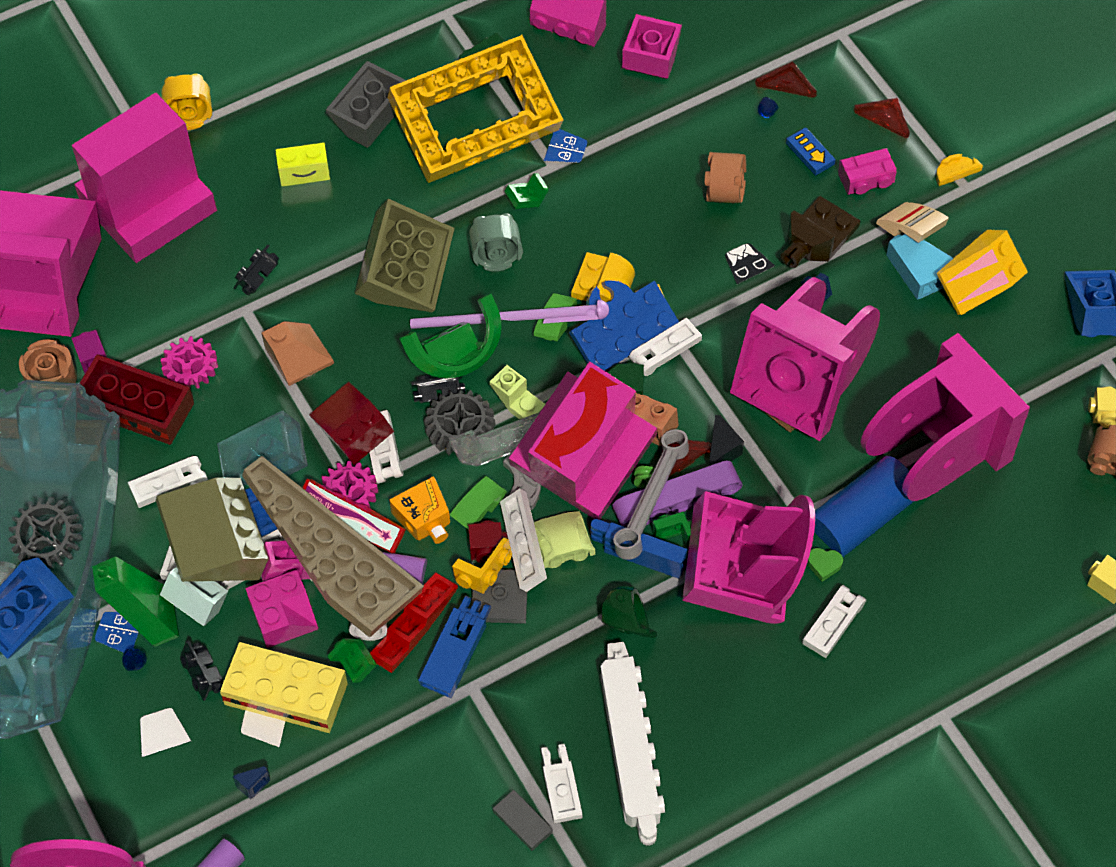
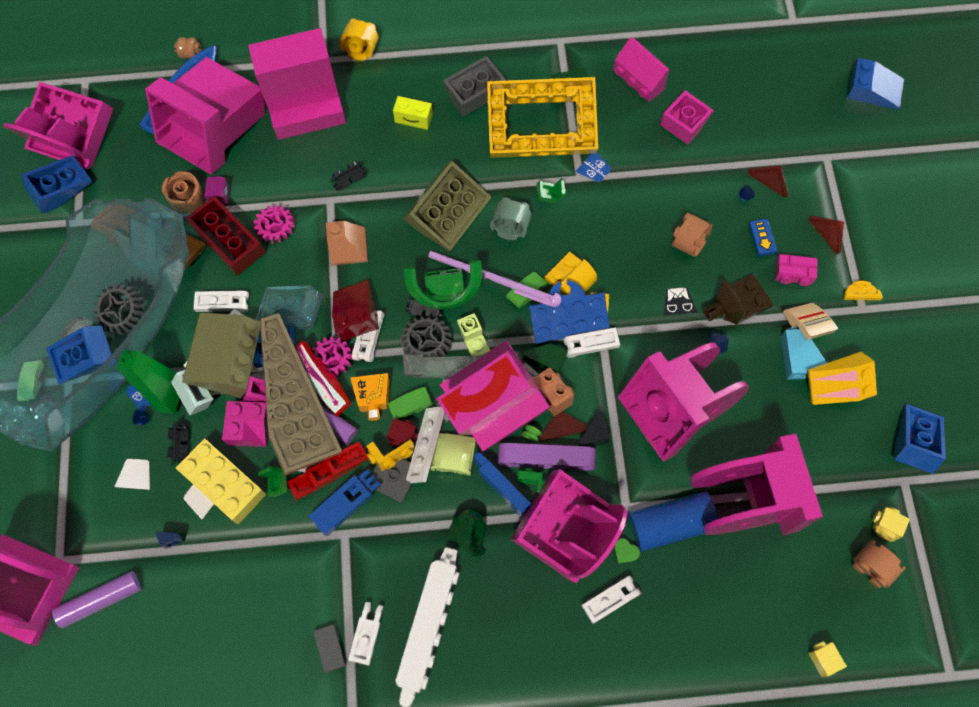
camera: 25 degrees right, 10 degrees up
(651, 494) = (525, 451): light grey piece -> none

